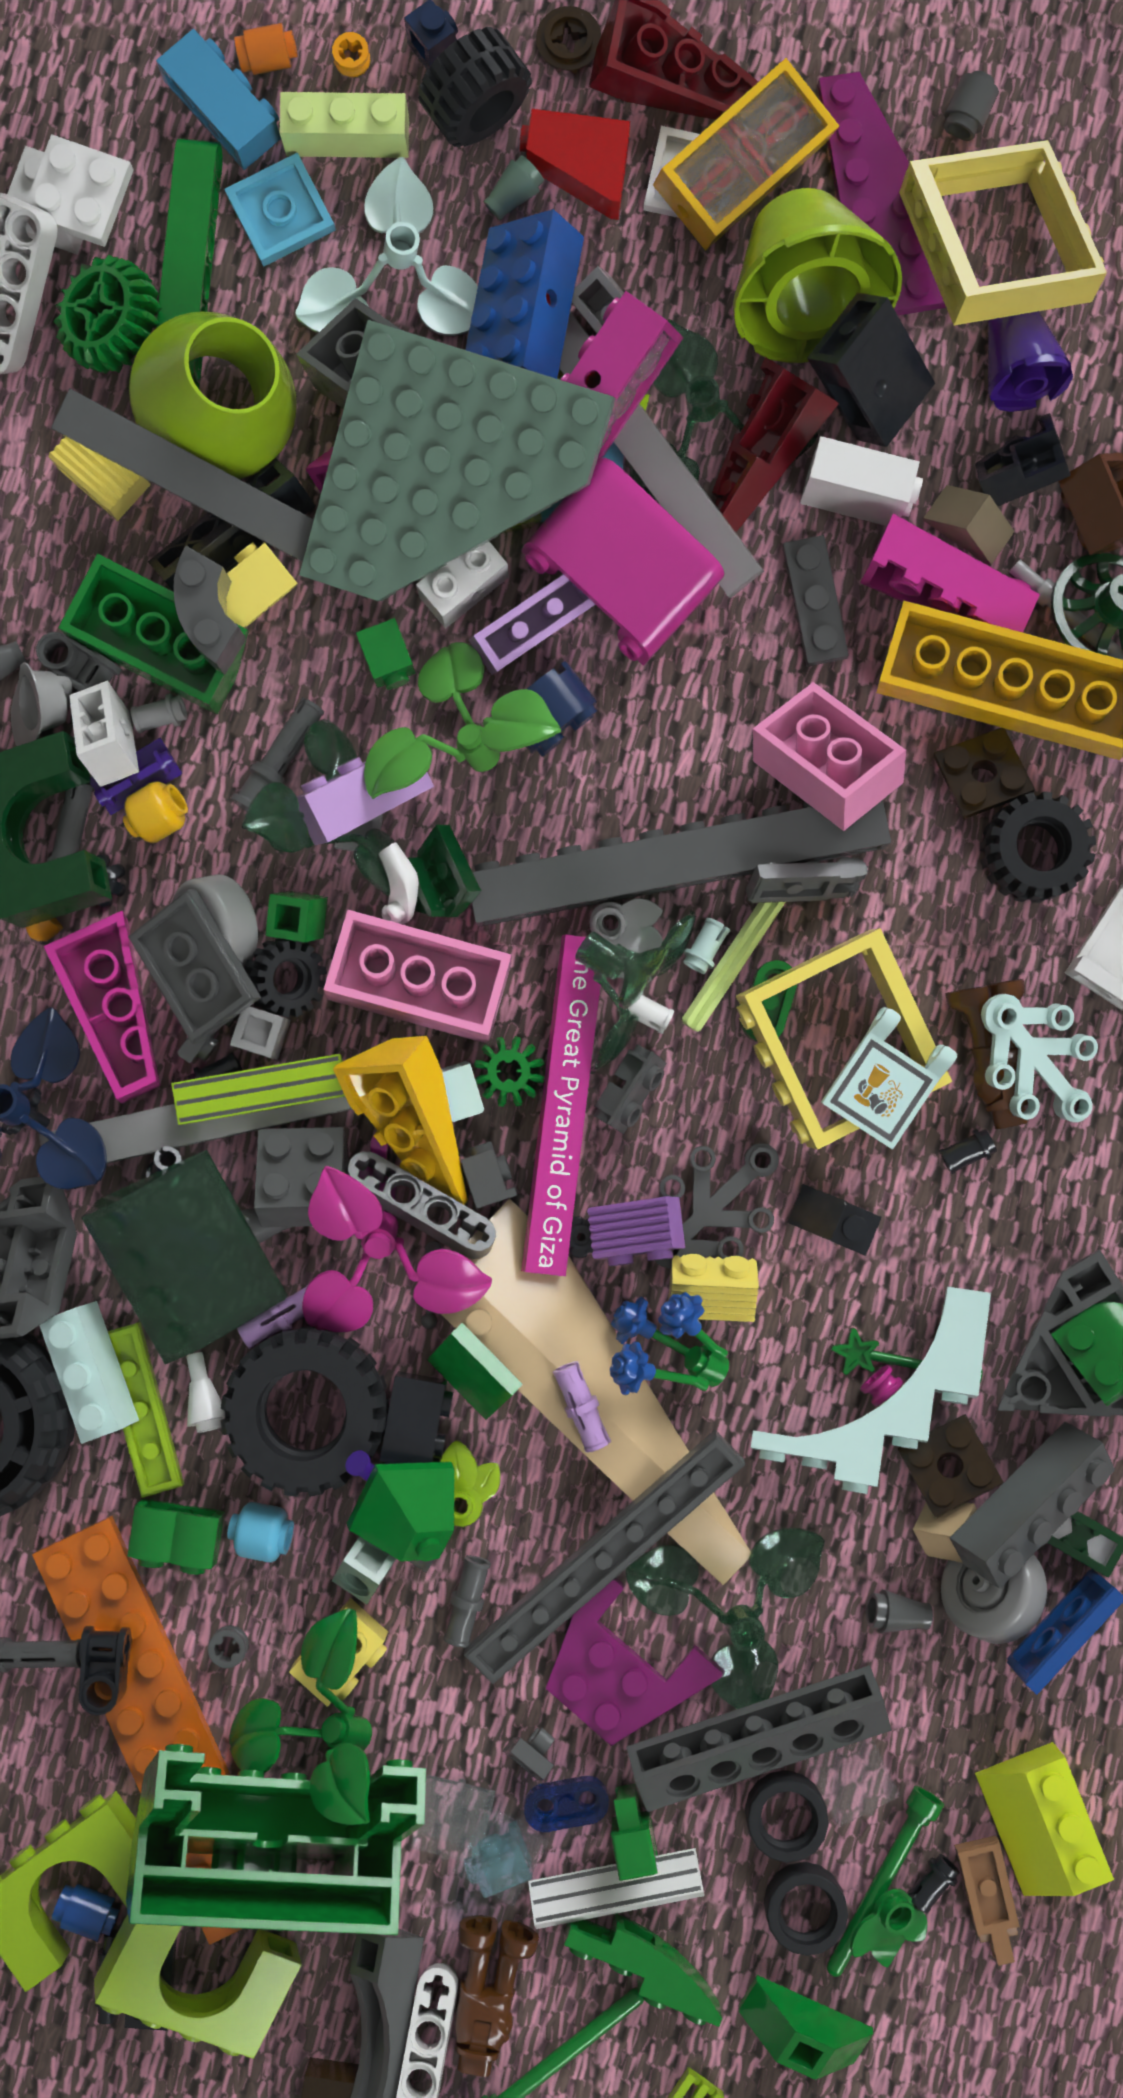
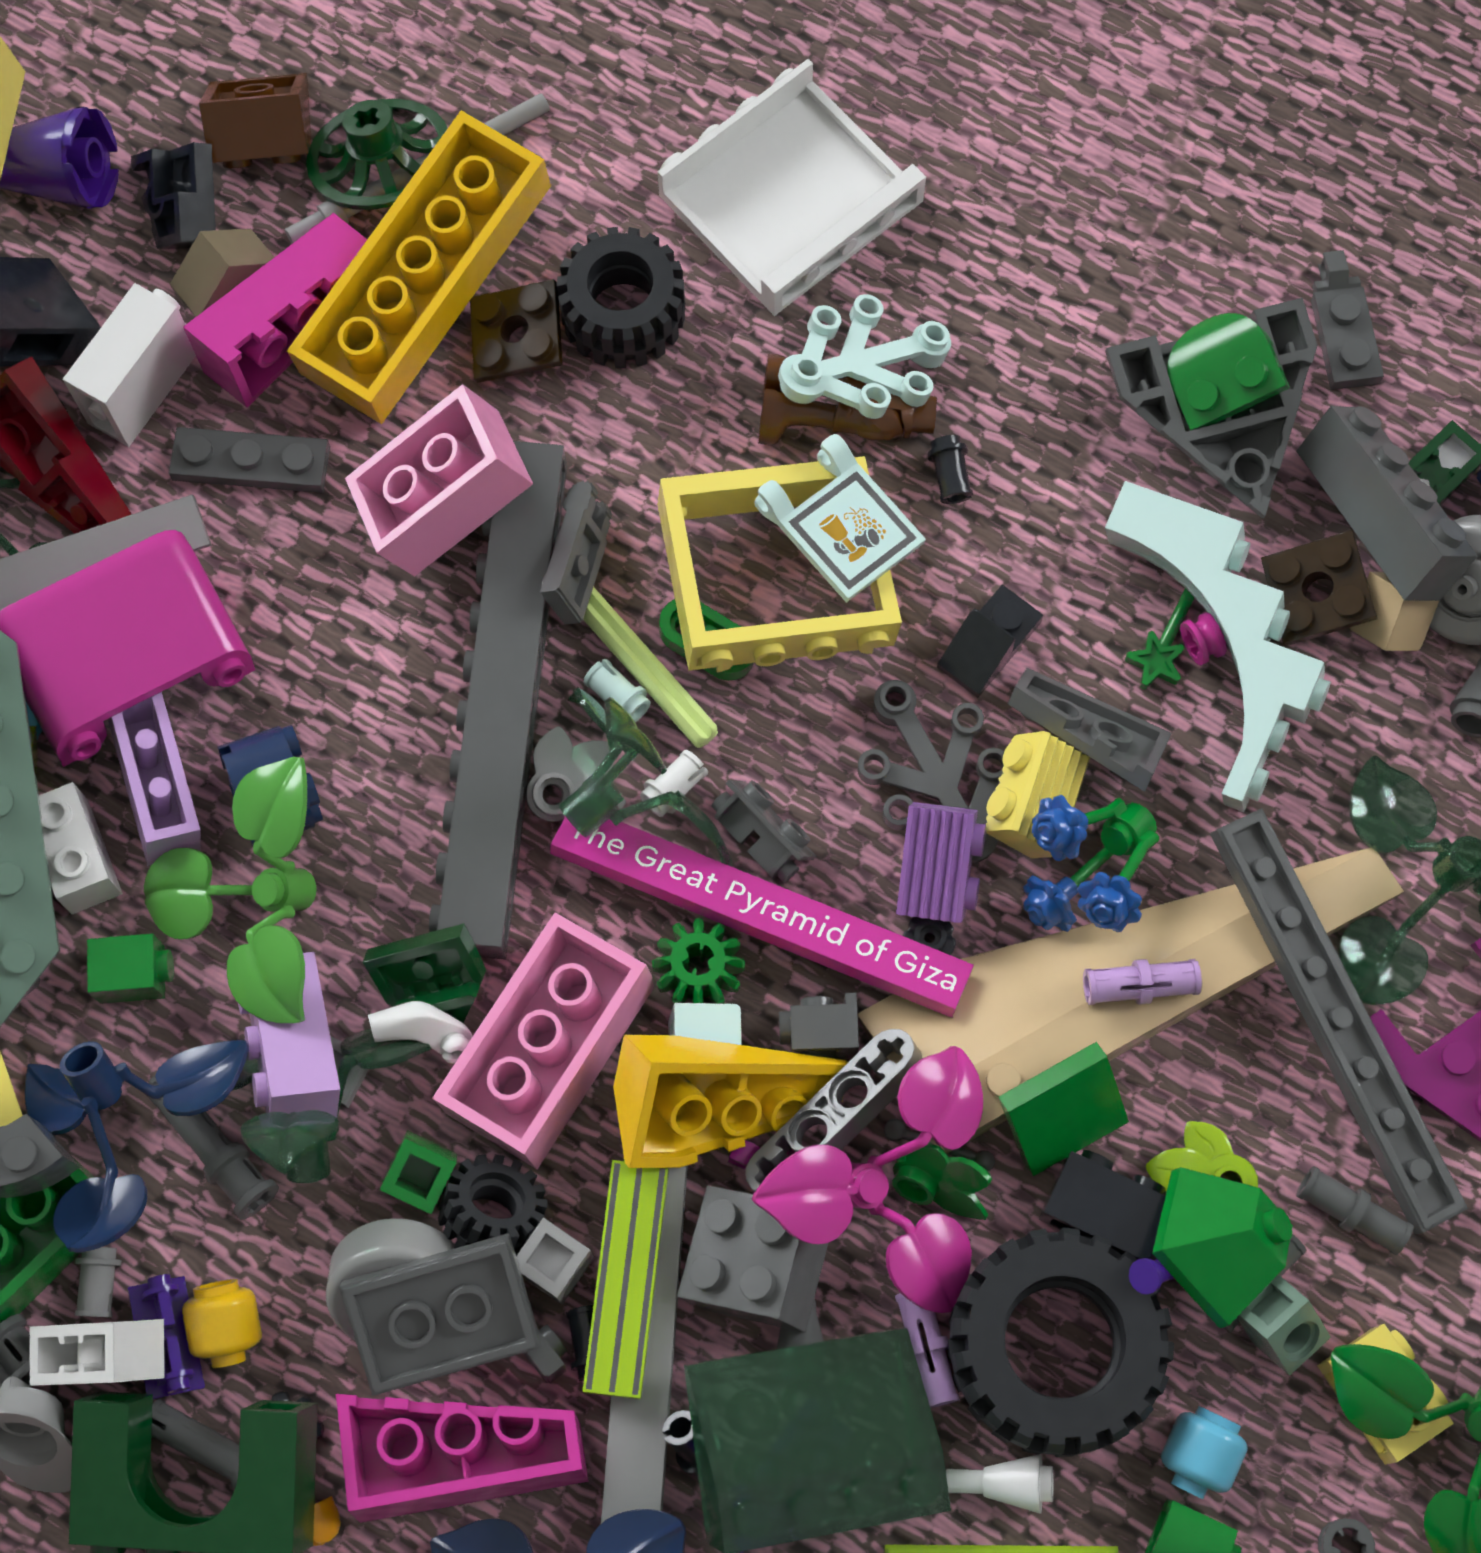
camera: 75 degrees left, 15 degrees down
(283, 651) = (87, 1081): none -> dark blue plant
(399, 1302) = (946, 1180): none -> green plate
(781, 1319) = (1094, 727): none -> dark grey wing

